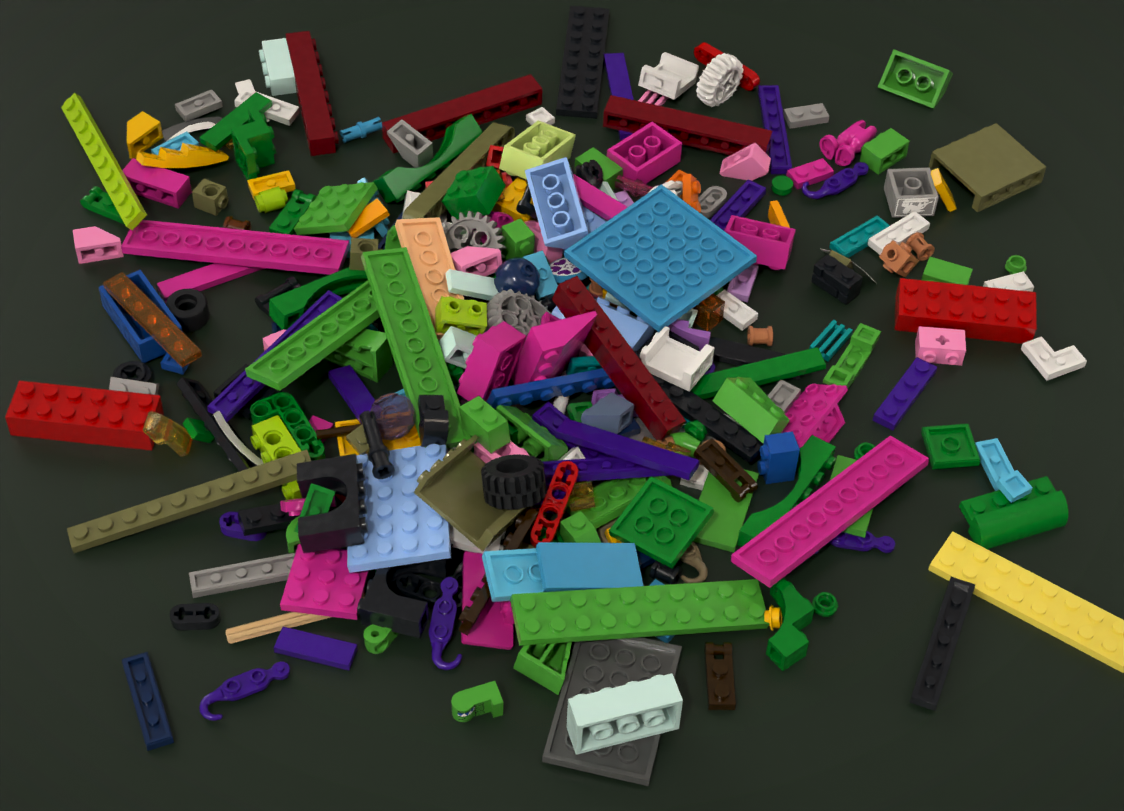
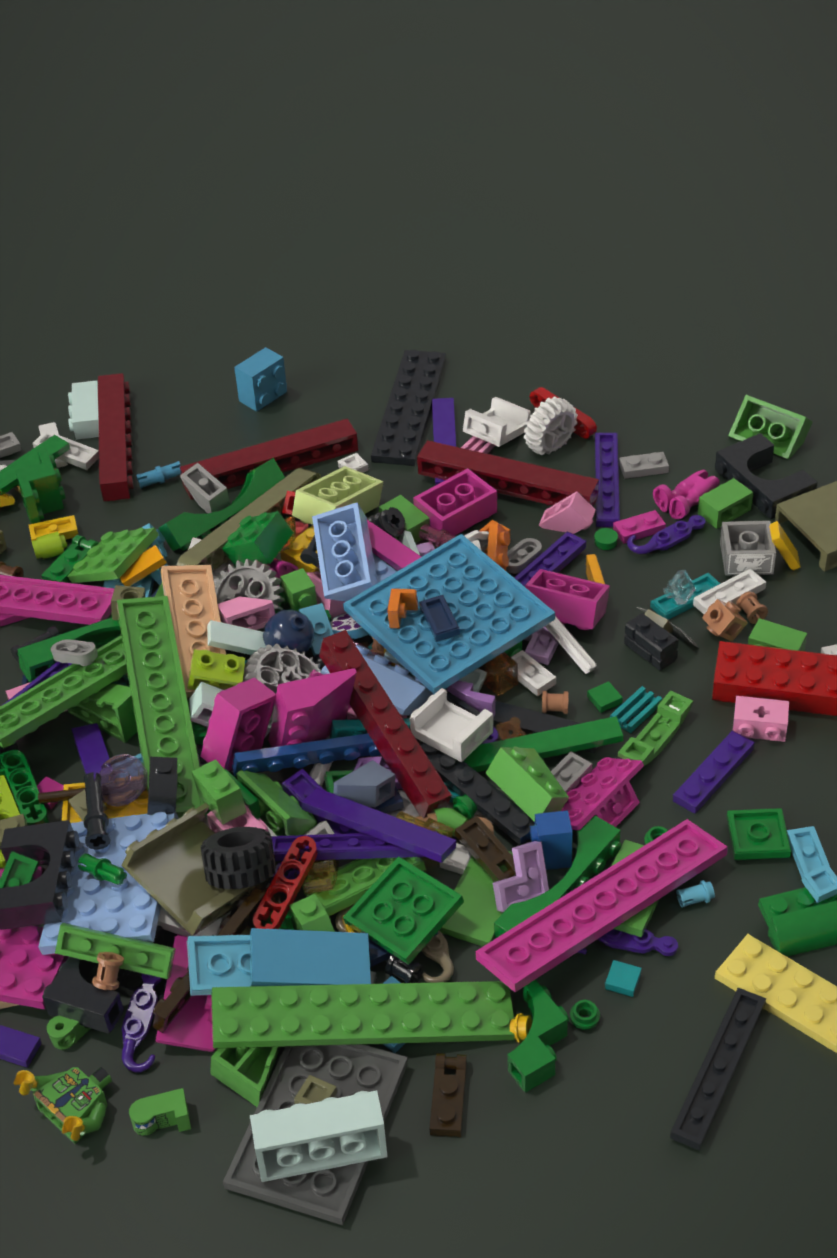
camera: 10 degrees right, 5 degrees down
(325, 300) = (74, 652): none -> light grey plate
(394, 496) = (102, 869): none -> green axle
(395, 695) = (69, 1099): none -> torso
(415, 584) = (108, 970): none -> nougat bush
(417, 566) = (137, 954): none -> bright green tile
(442, 36) = (261, 379): none -> dark azure brick
(611, 678) = (314, 1091): none -> olive plate
(619, 249) = (399, 602): none -> orange bracket
(655, 262) = (439, 618): none -> dark blue tile
(728, 357) = (513, 724): none -> clear orange plate
(763, 492) = (529, 878): none -> lavender plate
(768, 286) = (571, 646): none -> white axle
(801, 329) = (604, 697): none -> green tile
(852, 573) = (623, 978): none -> teal tile
(856, 230) = (680, 587): none -> clear light blue tile
(896, 107) = (753, 453): none -> black arch
(910, 497) = (696, 894): none -> medium azure pin

